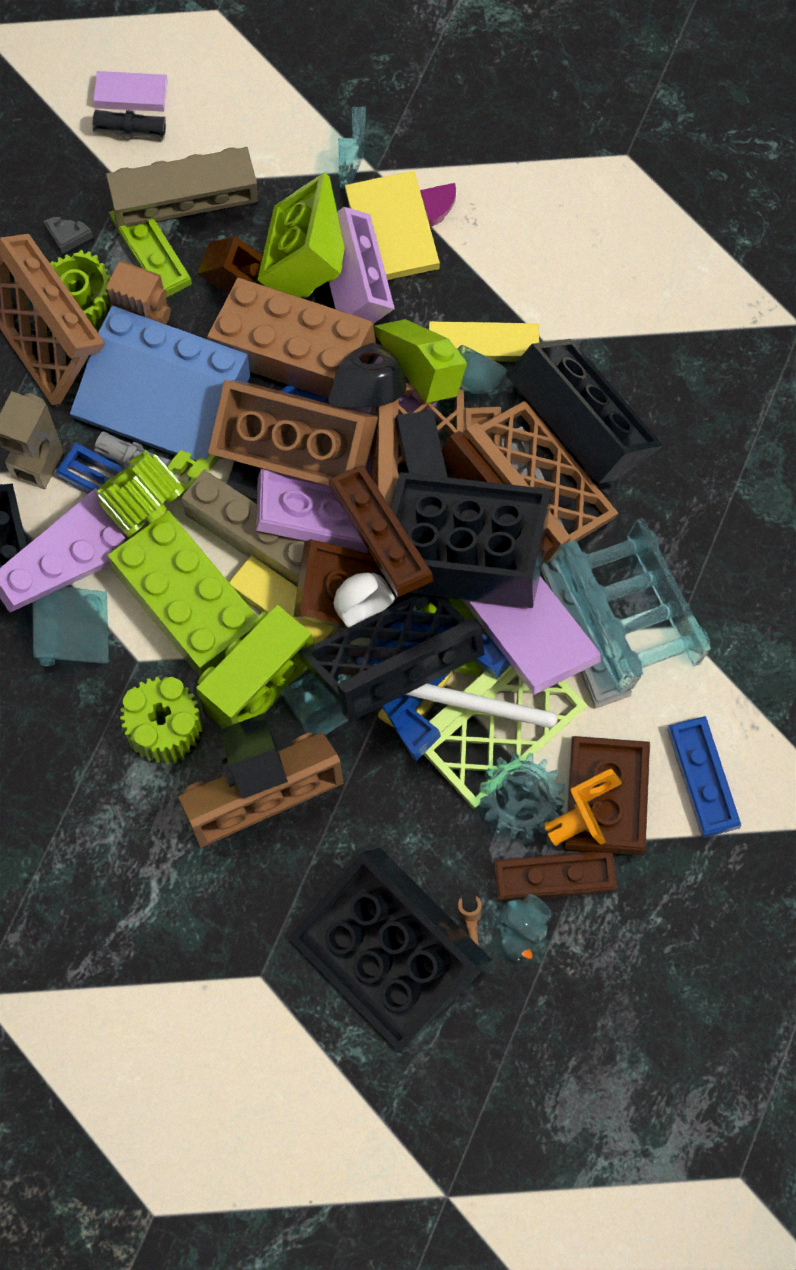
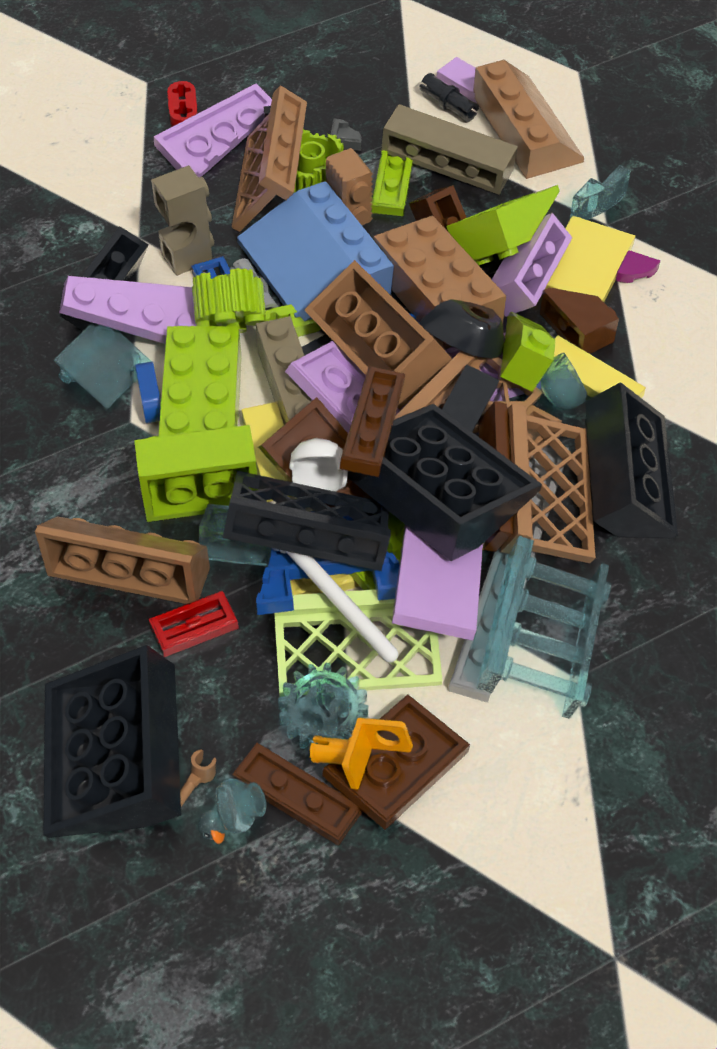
camera: 35 degrees right, 15 degrees down
(137, 624) = (149, 391): none -> blue beam
(158, 700) = (100, 462): lime brick -> none
(220, 105) = (524, 119): none -> medium nougat slope
(251, 756) = (129, 516): black brick -> none
(343, 829) = (197, 628): none -> red tile
(436, 293) = (579, 318): none -> reddish brown slope
(704, 777) = (494, 808): blue tile -> none

